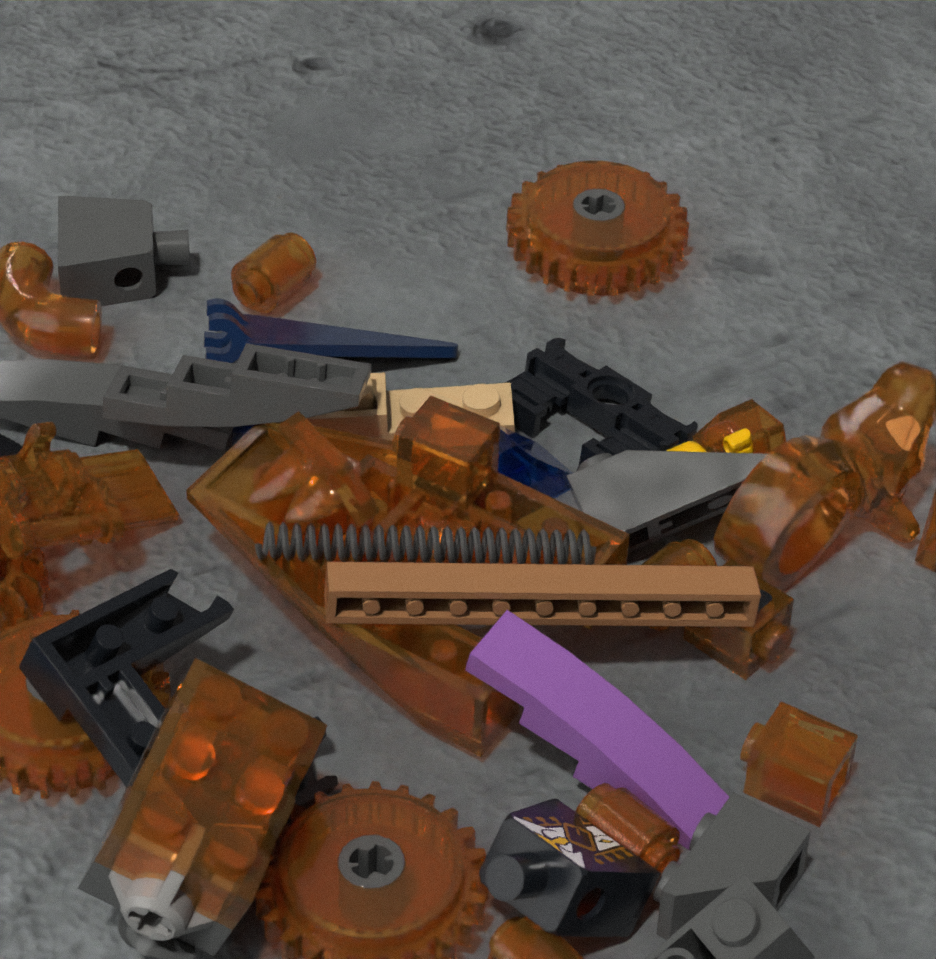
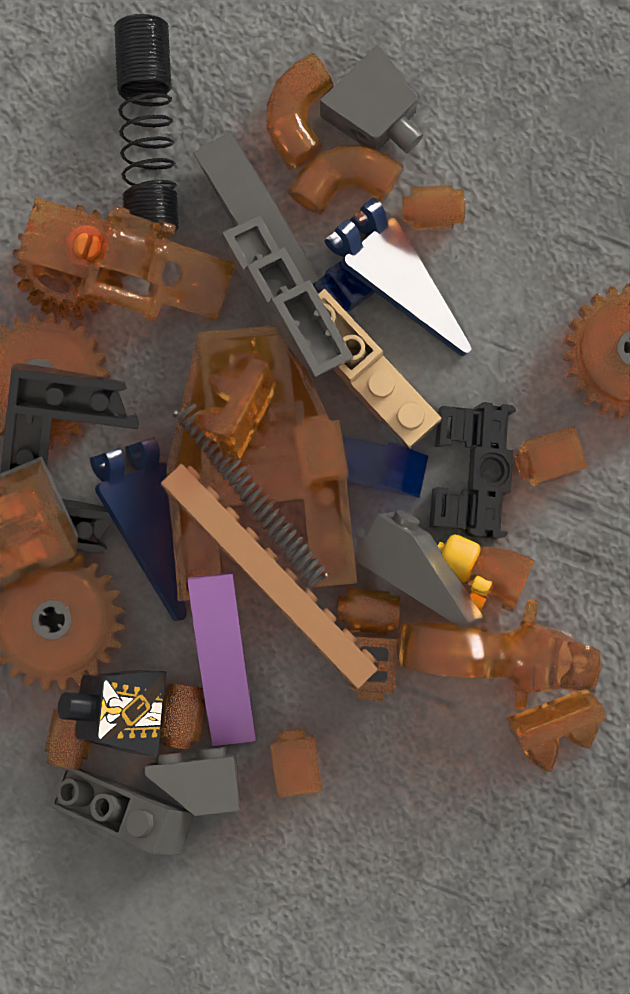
camera: 50 degrees right, 40 degrees up
(153, 303) = (341, 169): none -> clear orange cylinder
(266, 669) = (142, 514): none -> dark blue flag
(647, 339) = (551, 456): none -> clear orange brick

